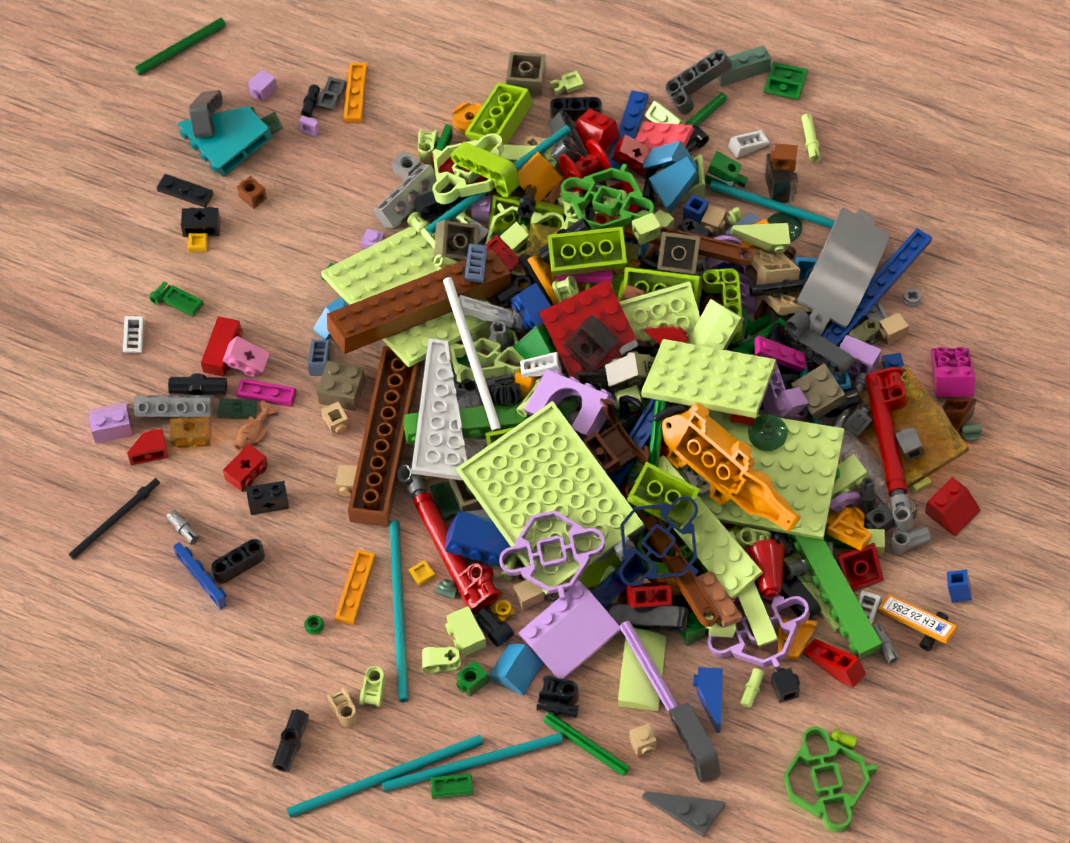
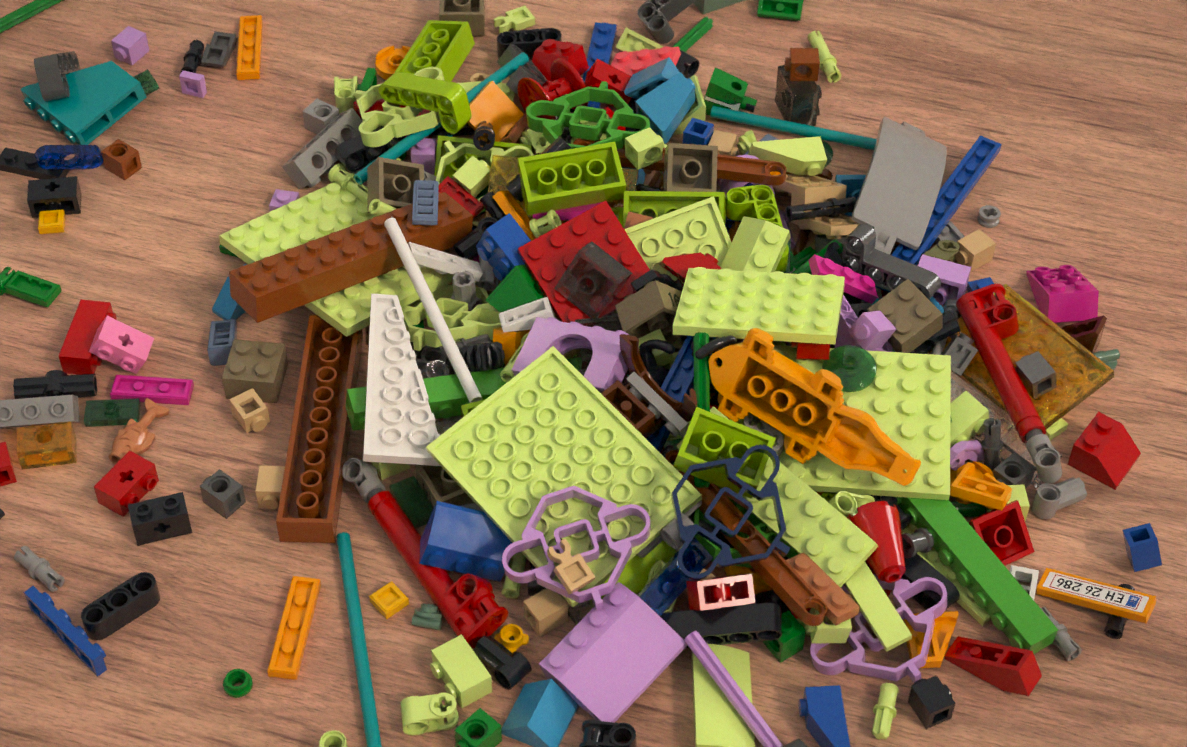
camera: 10 degrees left, 10 degrees down
(213, 188) = (53, 157): none -> clear blue beam
(313, 488) = (222, 493): none -> dark grey brick
(546, 572) = (571, 571): none -> tan plate
(622, 452) = (674, 422): none -> light grey plate
(737, 143) = (747, 67): white slope -> none

